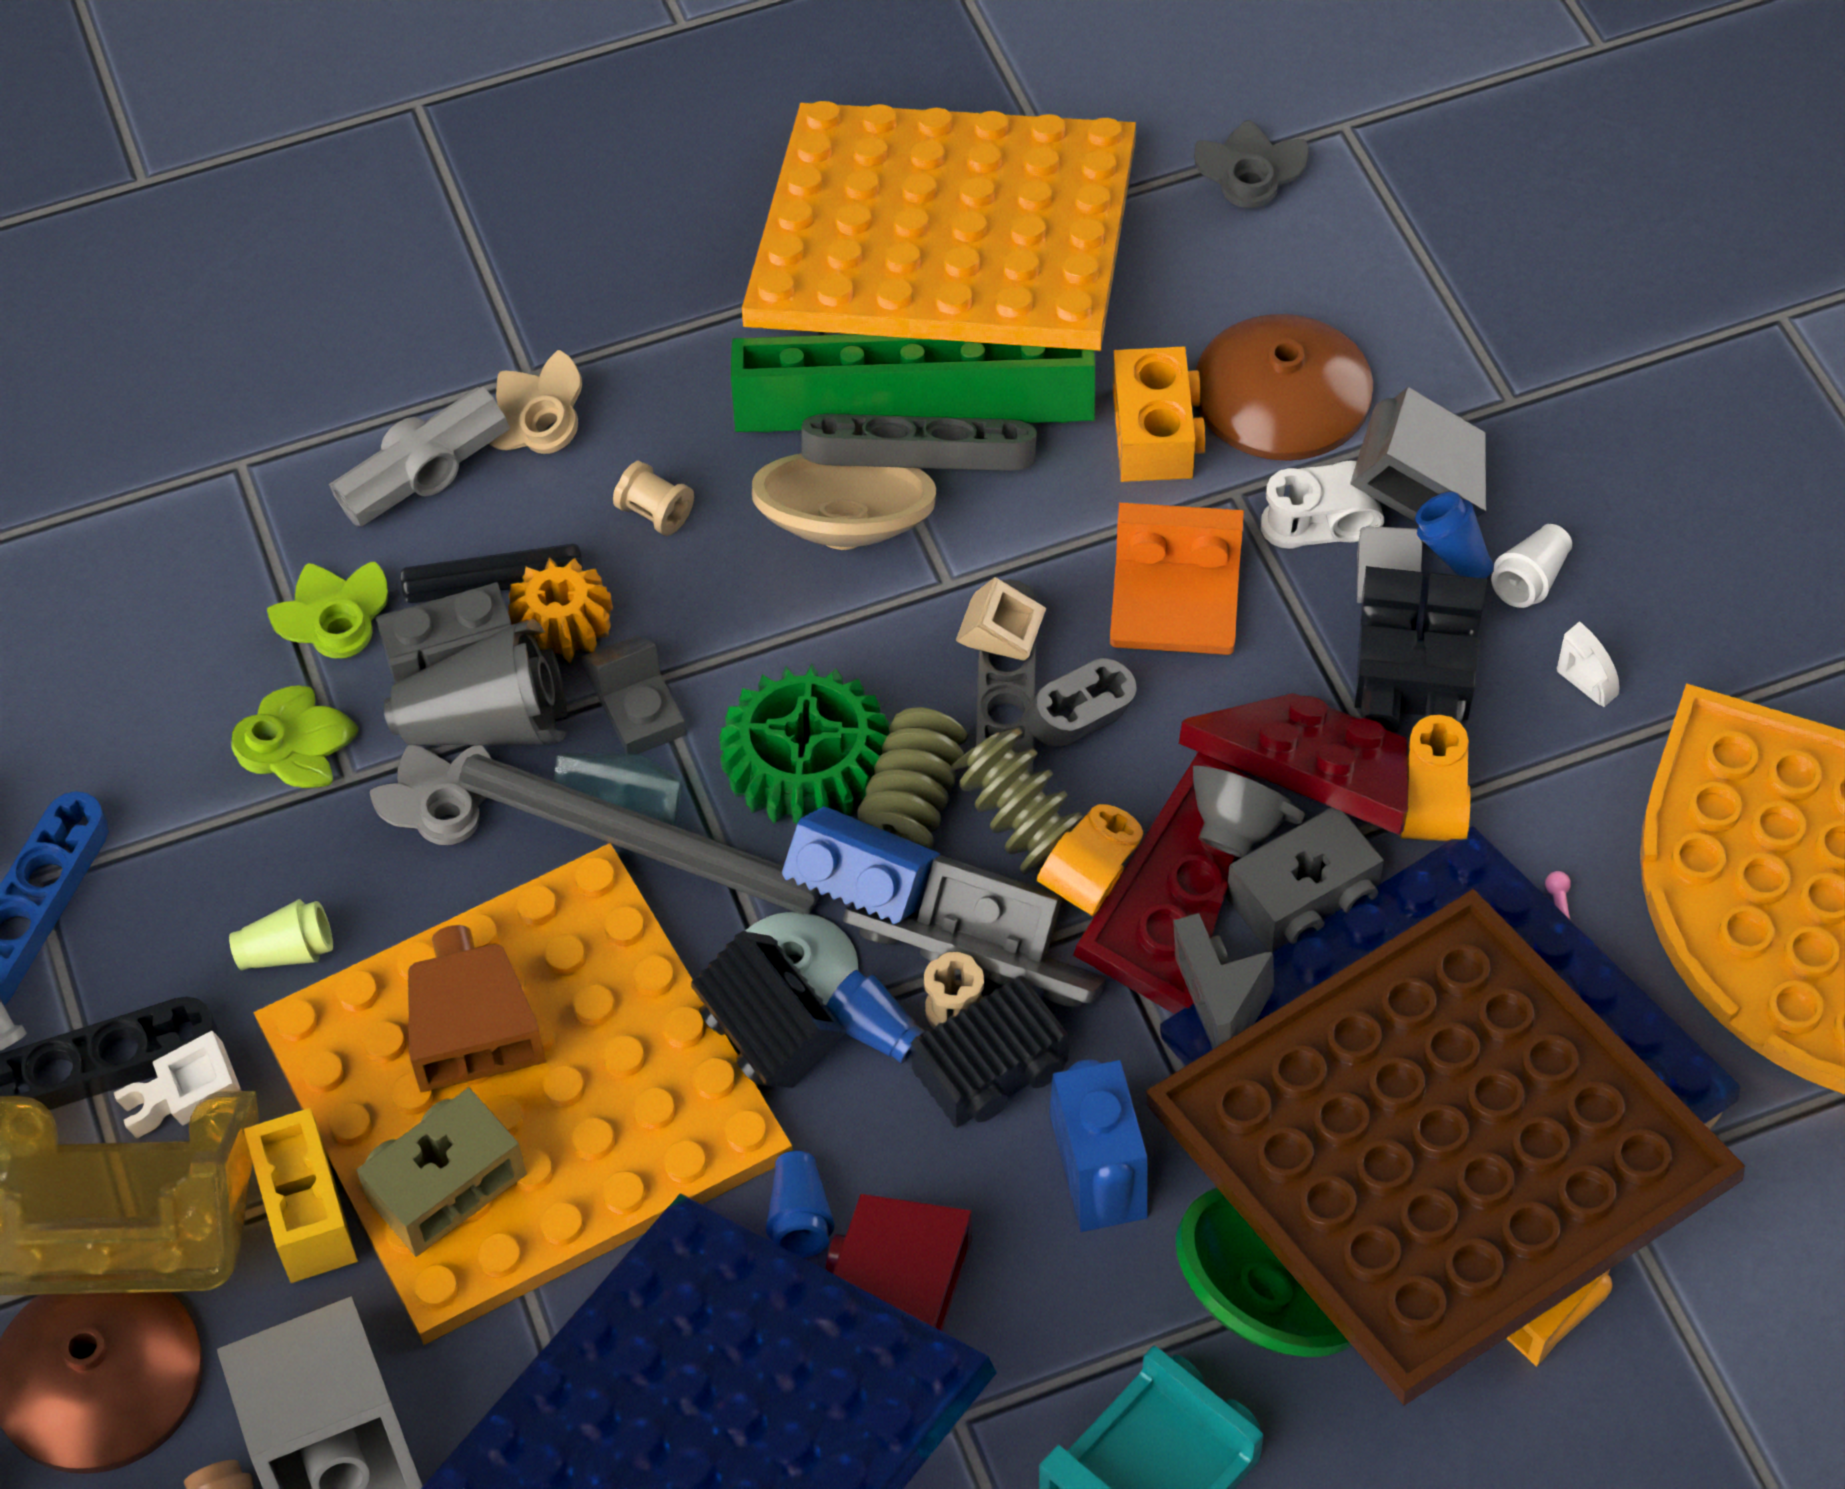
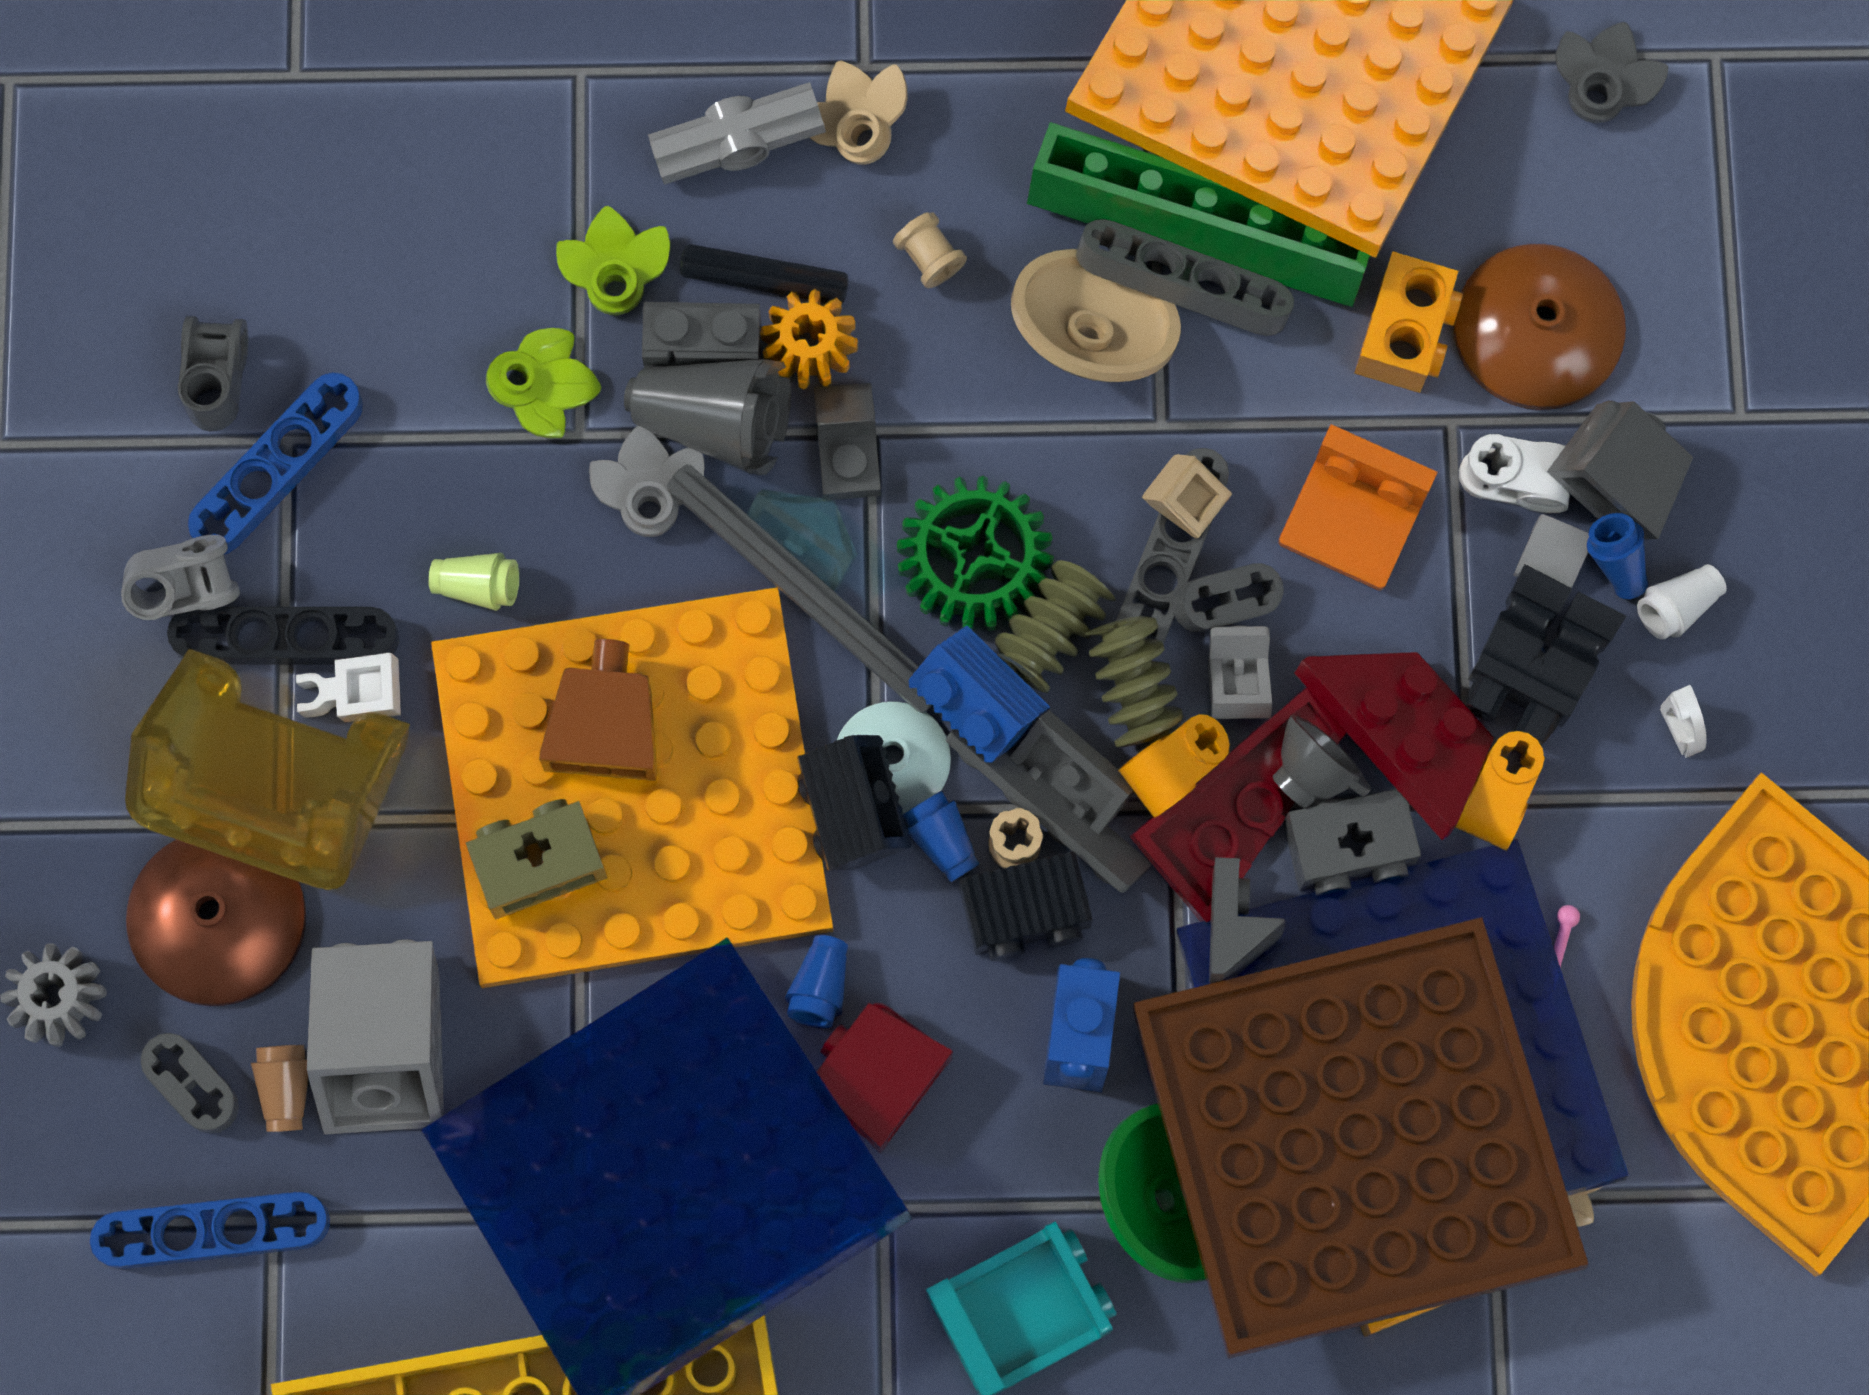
camera: 15 degrees right, 20 degrees up
(300, 1195) = (418, 833): yellow brick -> none
(1120, 763) = (1239, 672): none -> light grey bracket

